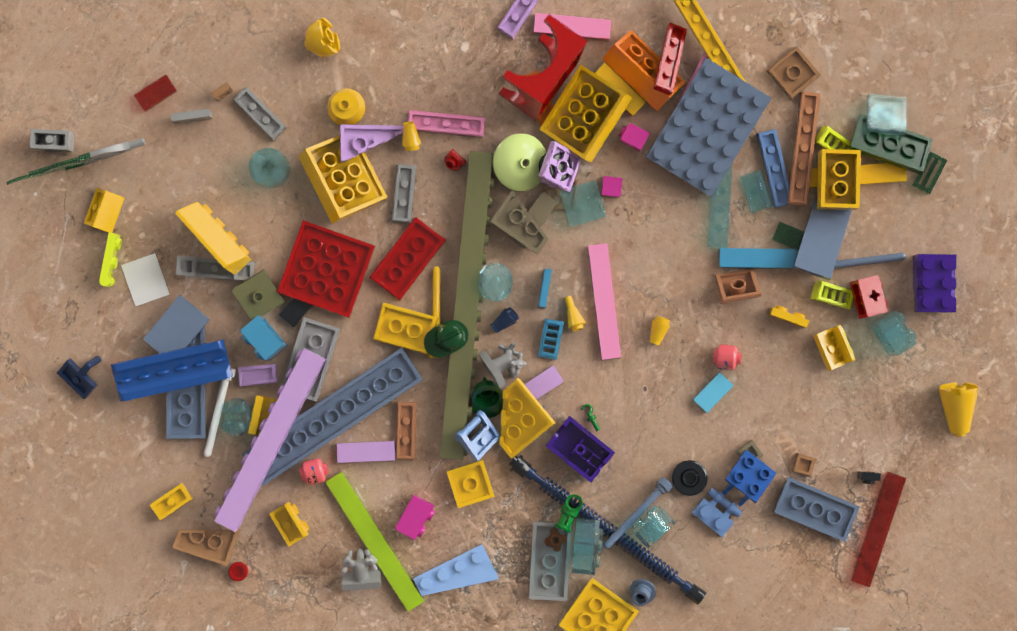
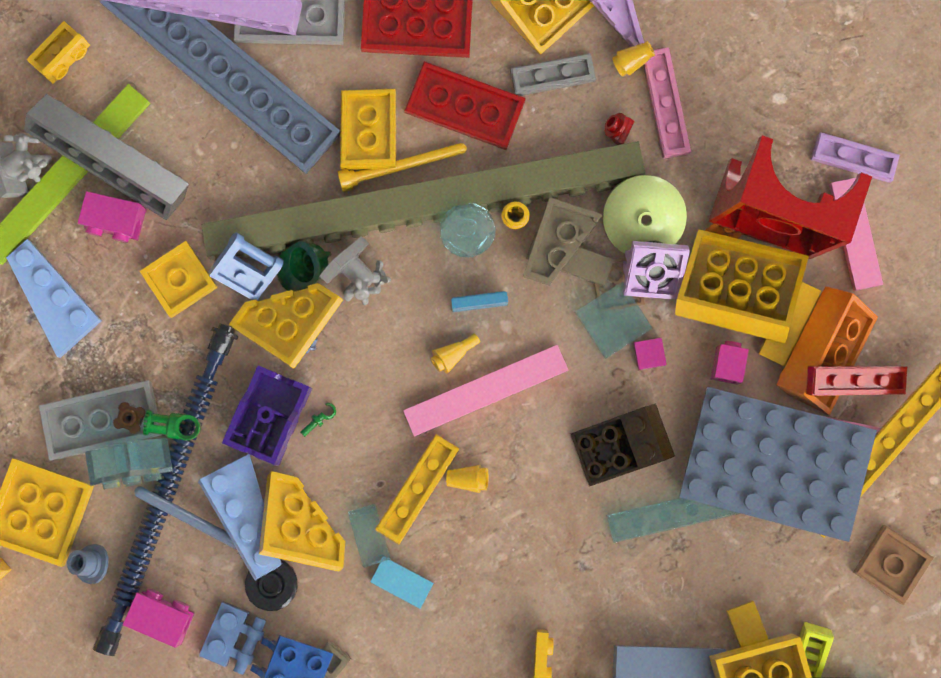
camera: 75 degrees right, 5 degrees down
(313, 471) = (137, 62): coral head -> none
(366, 451) = (185, 126): lavender tile -> none
(375, 508) = (105, 156): none -> brick
(406, 430) = (229, 172): nougat tile -> none
(446, 338) = (368, 184): dark green piece -> none
(496, 241) = (515, 209): none -> yellow cone
(505, 319) = (420, 260): dark blue cone -> none
(544, 382) = (347, 339): lavender tile -> none
(556, 348) = (412, 341): dark azure slope -> none
(636, 483) = (240, 507): none -> light blue wing
(653, 526) = (184, 551): clear light blue brick -> none
(656, 365) = (417, 489): none -> yellow tile
(658, 449) = (297, 527): none -> yellow plate
(666, 222) = (622, 444): none -> dark brown slope
(677, 404) = (370, 543): none -> clear light blue tile
(690, 556) = (159, 618): none -> dark pink brick
(727, 357) = (457, 587): coral head -> none
(737, 285) = (564, 573): nougat slope -> none
(756, 191) = (707, 561): clear light blue slope -> none
(757, 258) = (611, 590): dark azure tile -> none
(774, 167) = (748, 578): medium blue tile -> none
(788, 235) = (657, 625): clear green tile -> none
(803, 148) = (789, 611): nougat tile -> none

